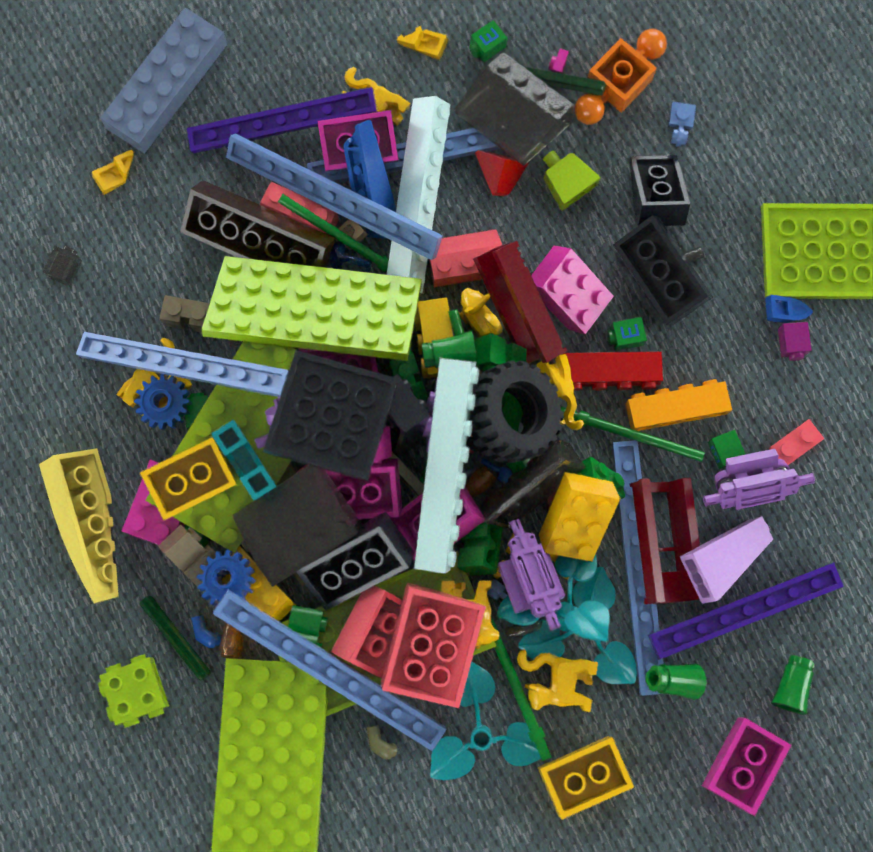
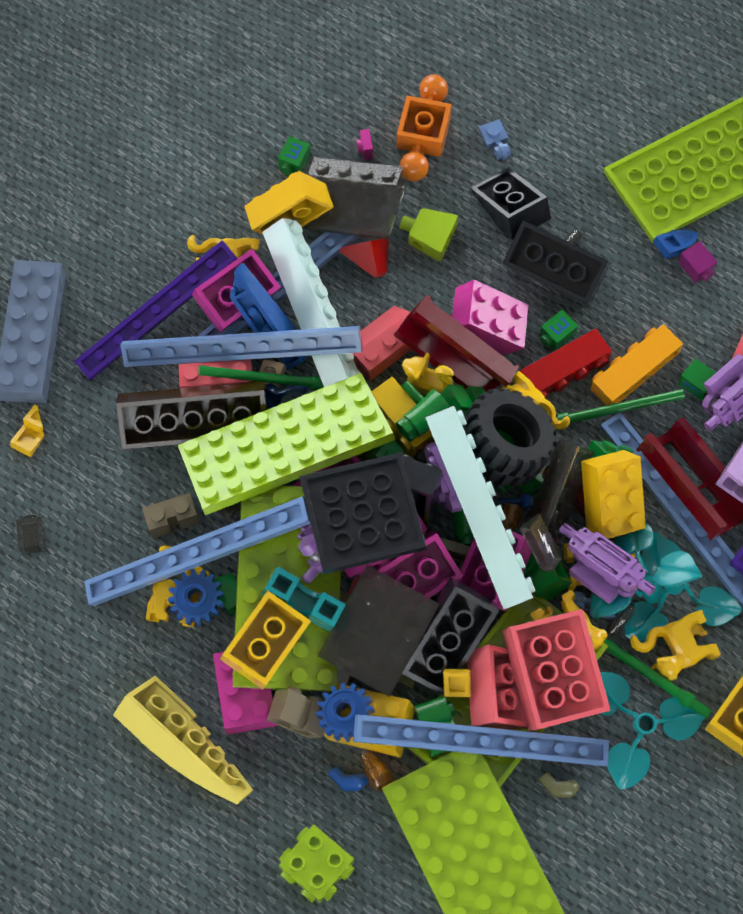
camera: 25 degrees left, 10 degrees down
(175, 638) = (324, 799): dark green axle -> none
(339, 607) = (457, 682): none -> yellow tile
(425, 42) = (239, 185): yellow slope -> none
(455, 82) = (295, 198): none -> yellow brick
(485, 526) = (541, 543): none -> clear smoke slope
(569, 81) = (387, 152): dark green axle -> none

